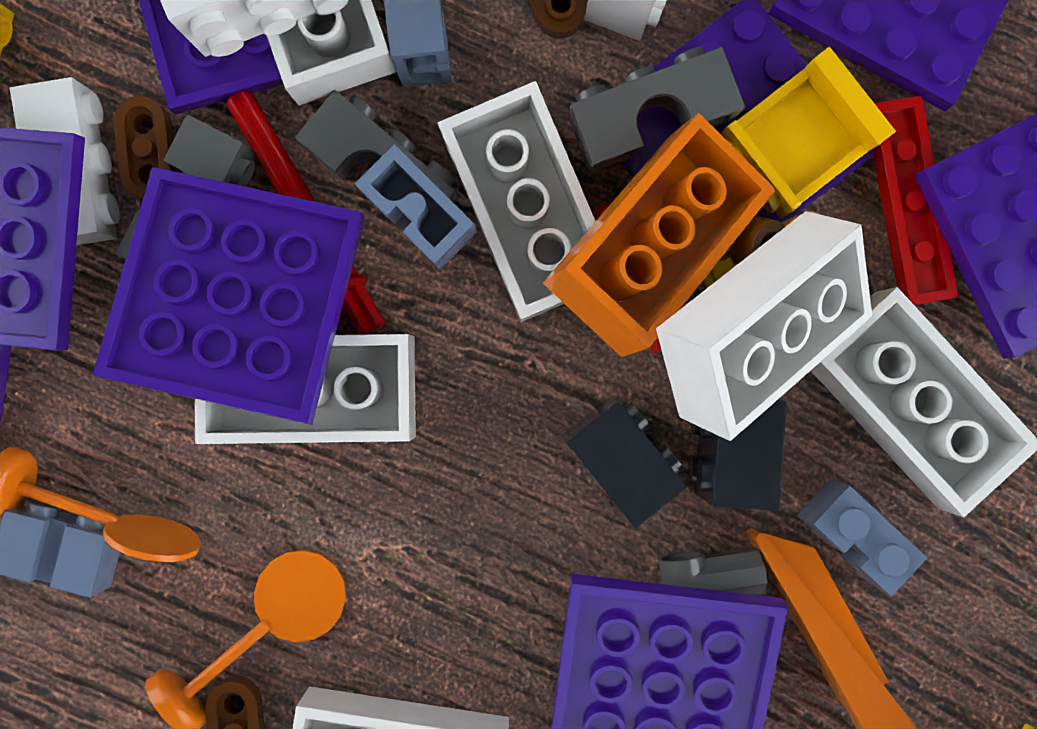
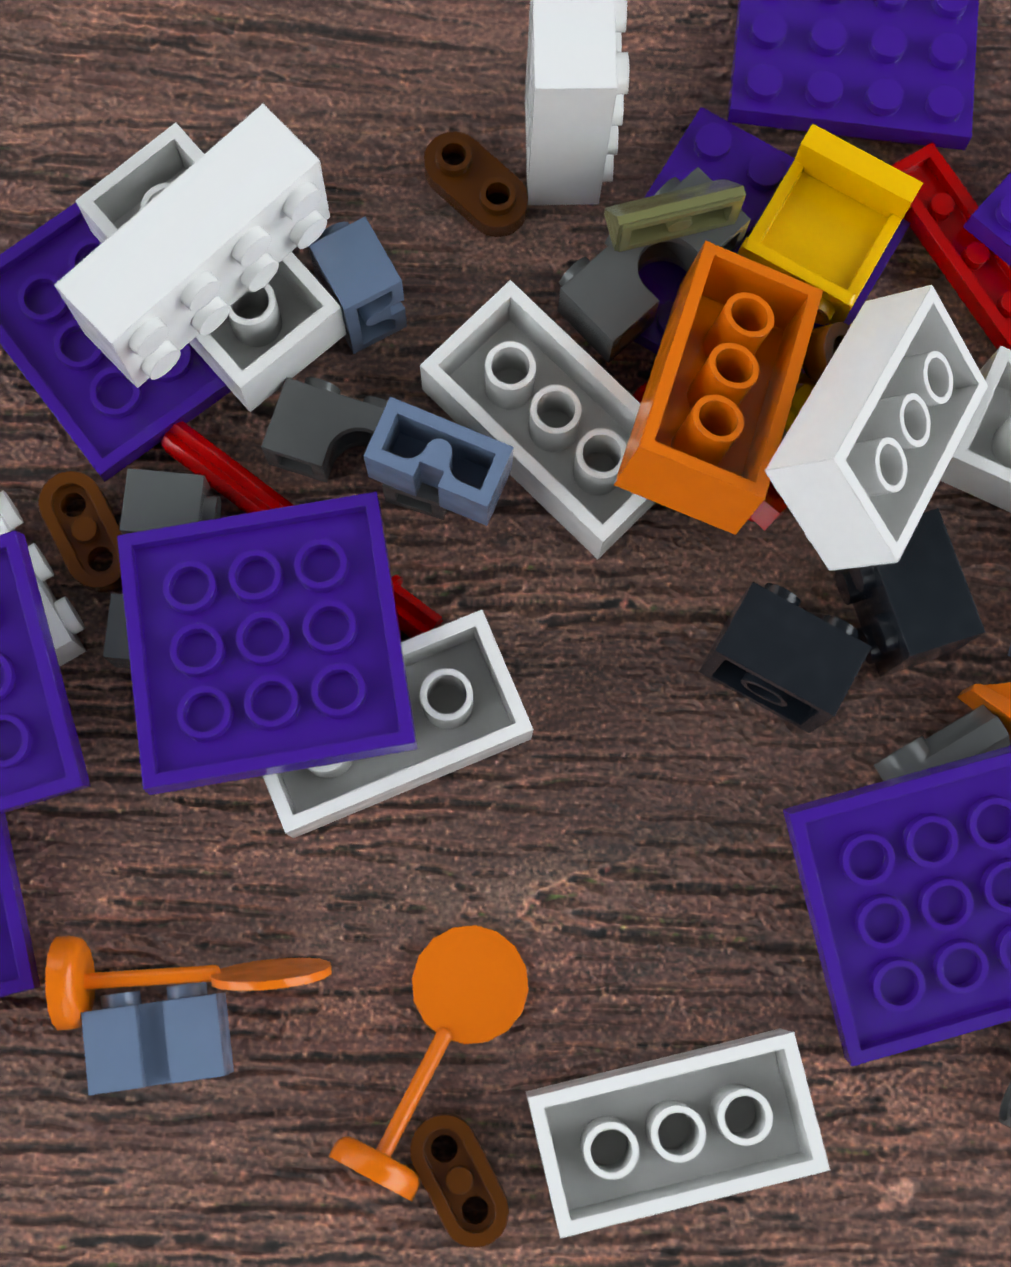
camera: 25 degrees left, 10 degrees down
(684, 79) = (674, 214): none -> olive slope

